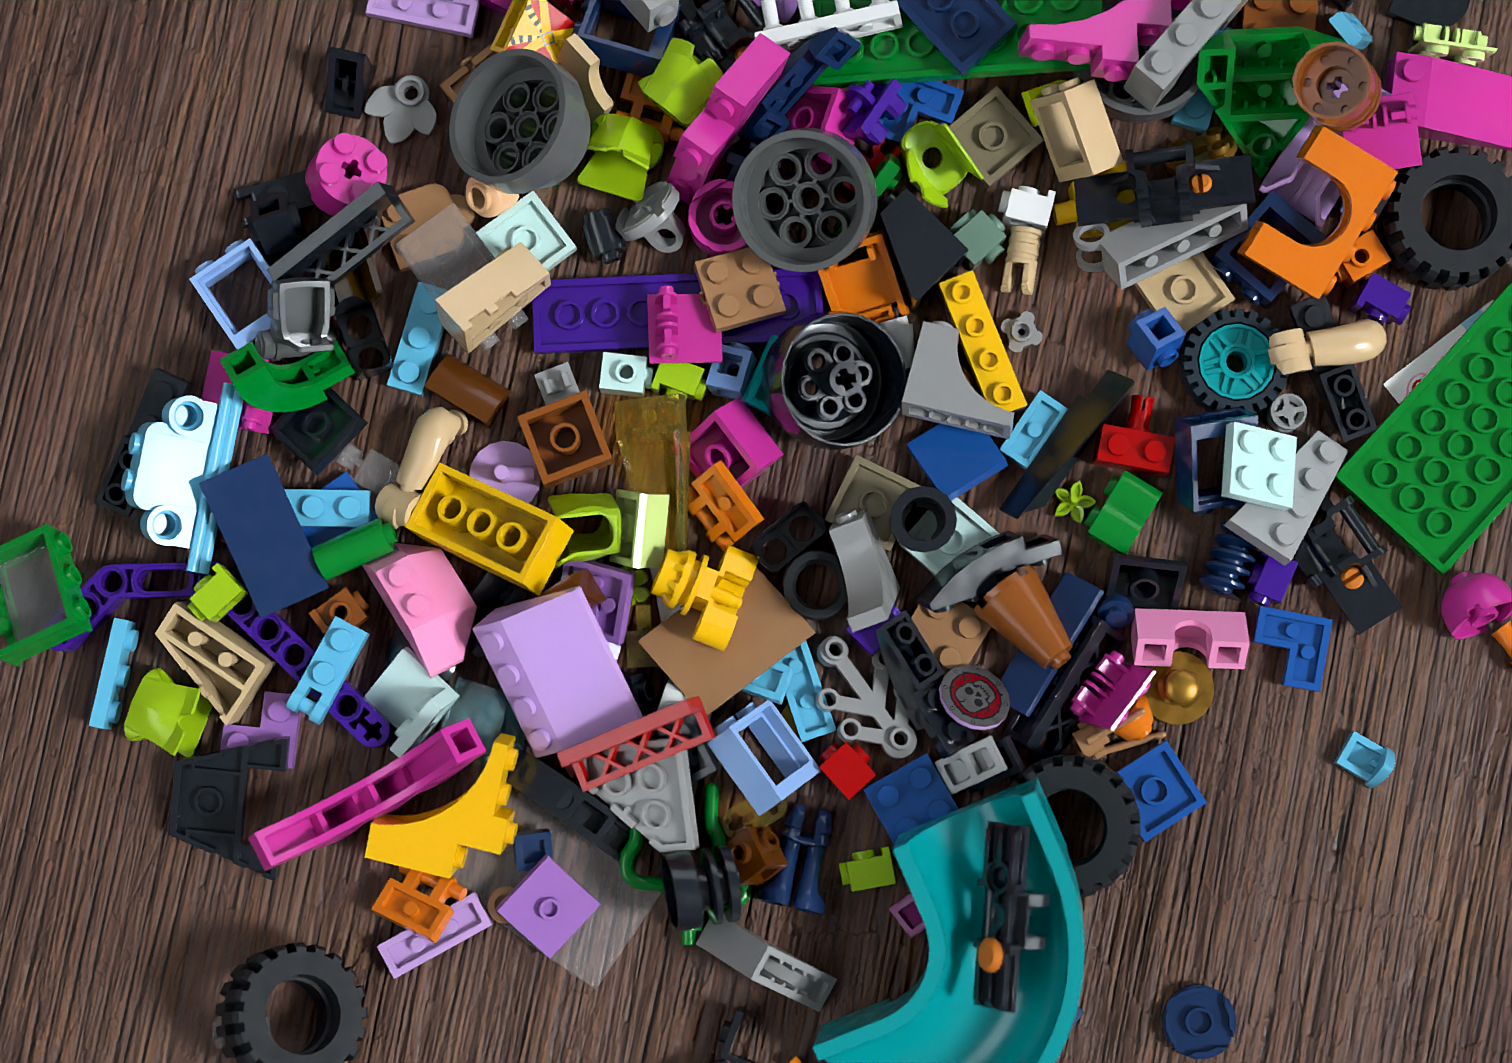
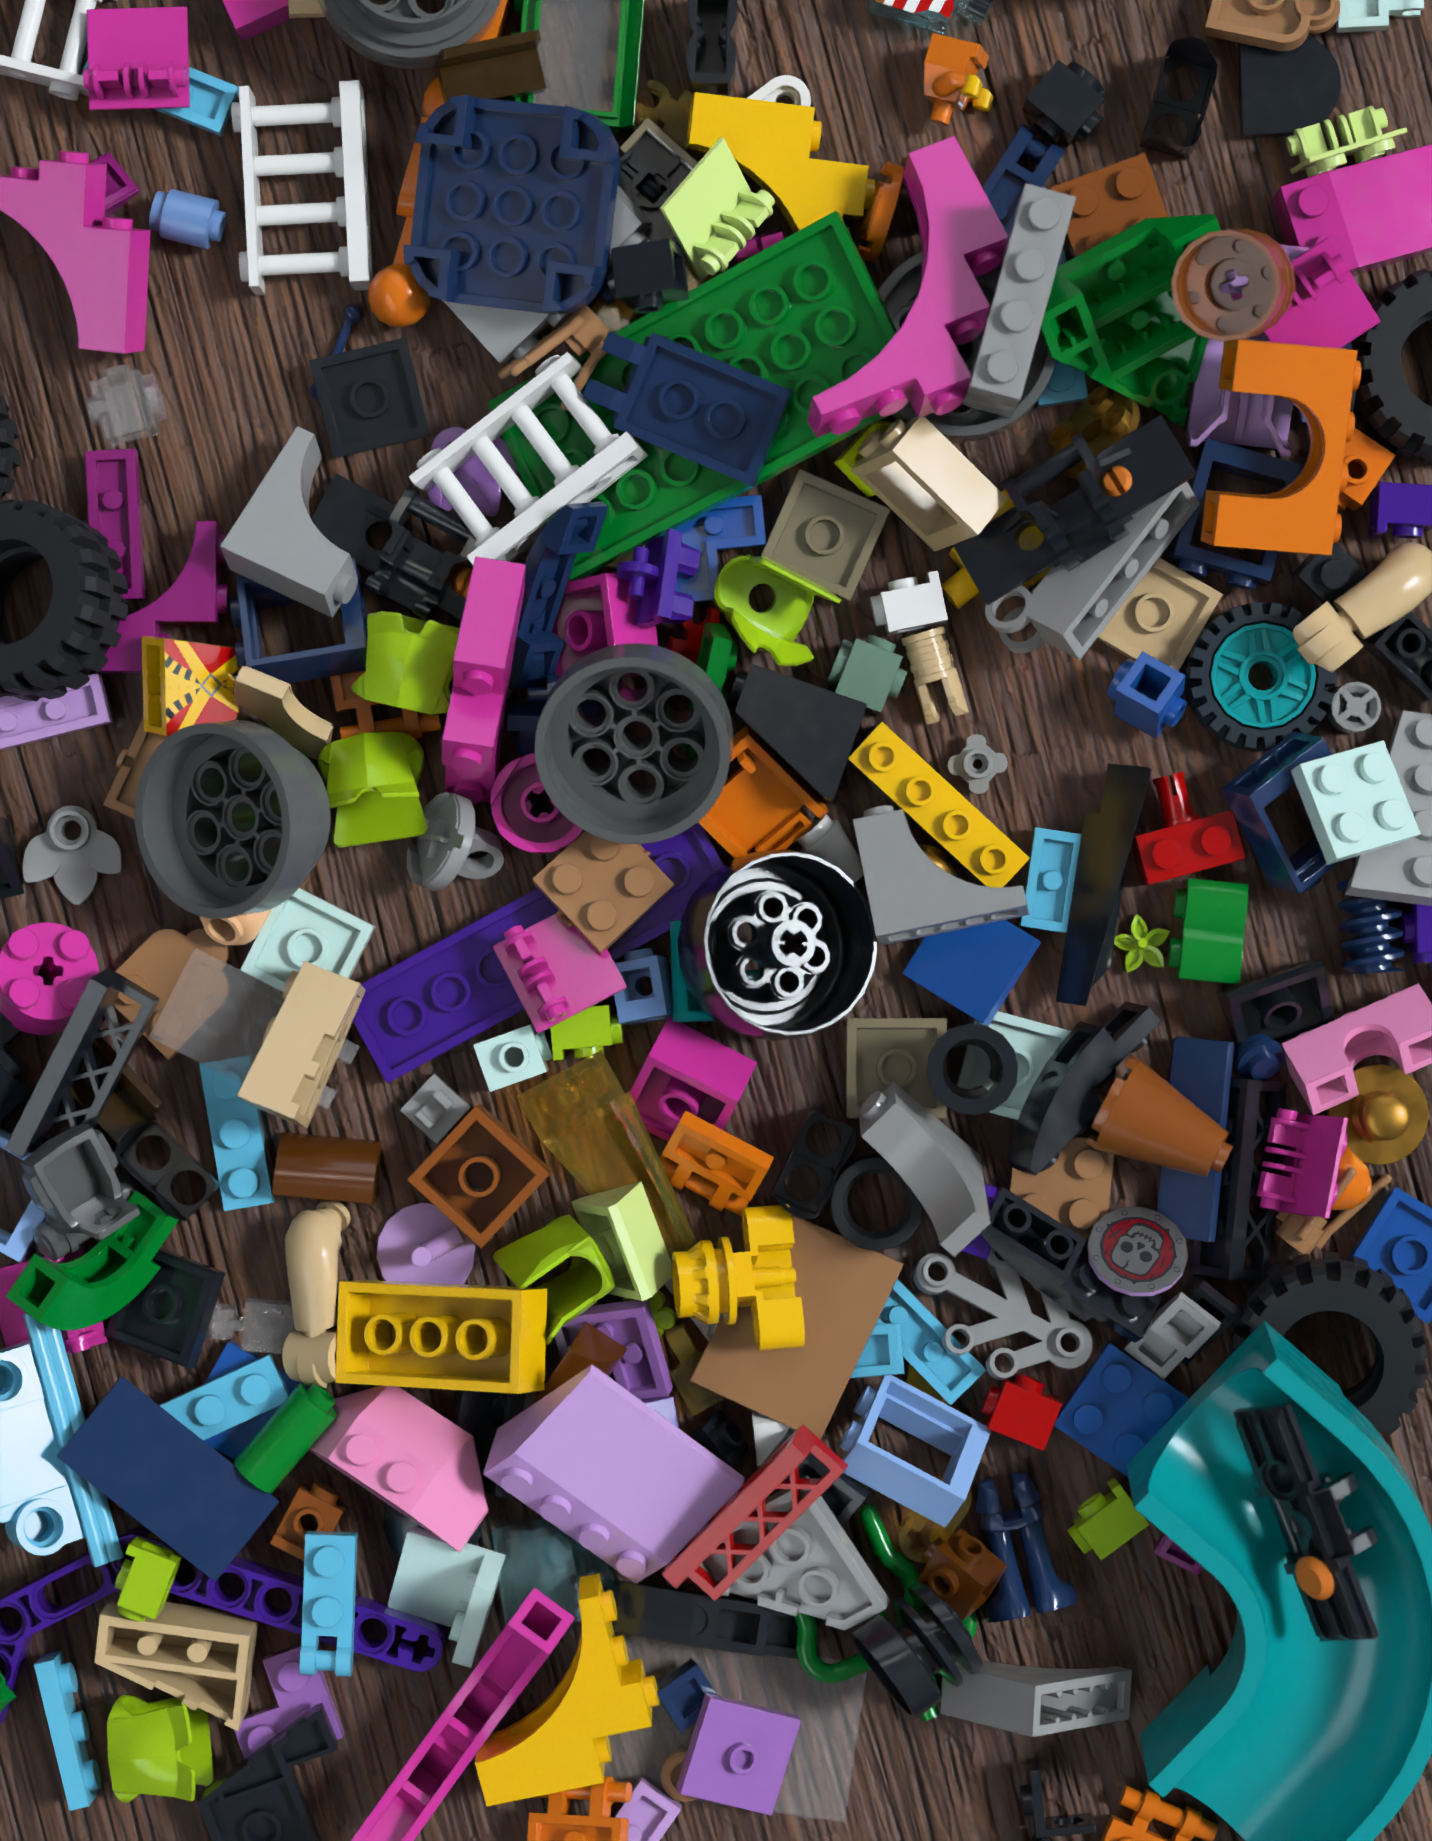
camera: 25 degrees left, 5 degrees up
(602, 237) = (400, 898): black brick -> none
(1351, 30) = (1212, 188): medium azure tile -> none

